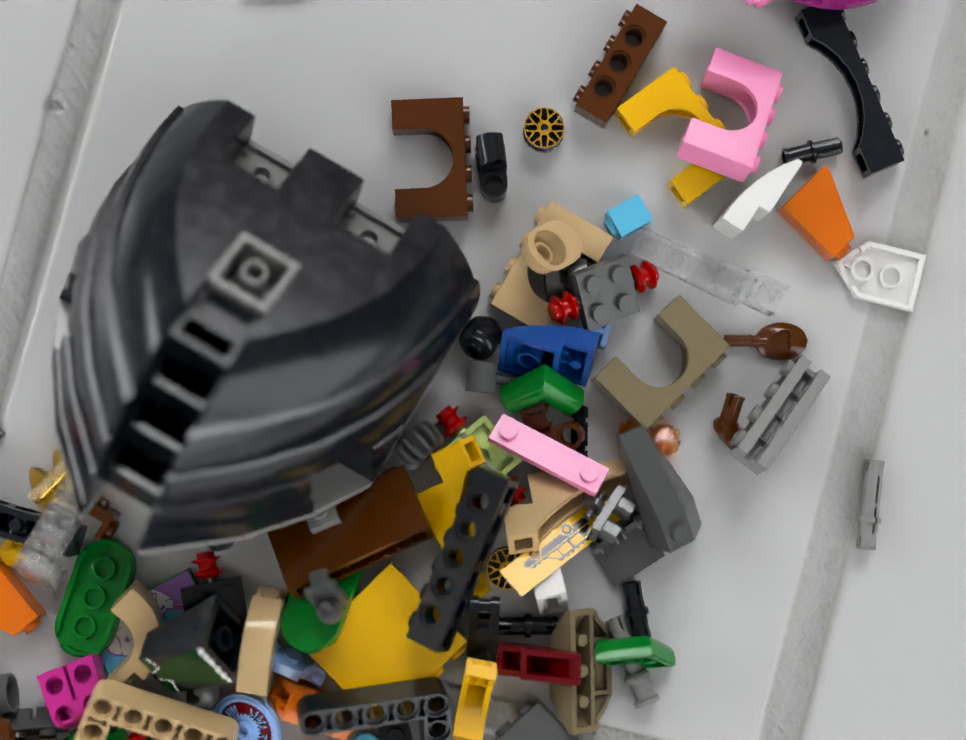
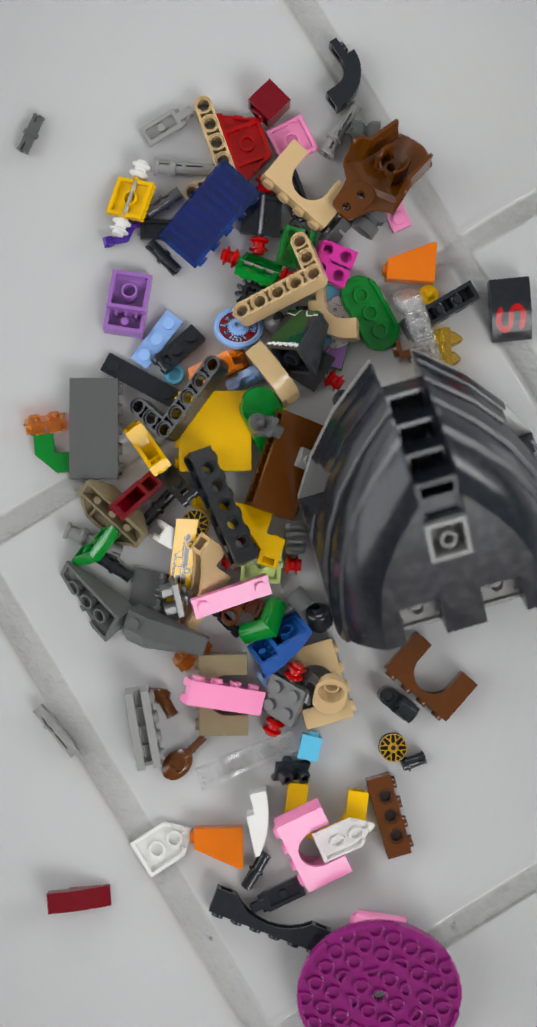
camera: 135 degrees right, 0 degrees up
(537, 93) = (413, 761): none -> black pin
(664, 361) = (223, 695): none -> bright pink brick
(673, 215) = (291, 770): none -> black hips
(687, 590) = (102, 603): none -> dark grey wedge
(693, 89) = (342, 838): none -> white tile
(815, 102) = (278, 895): none -> black hinge

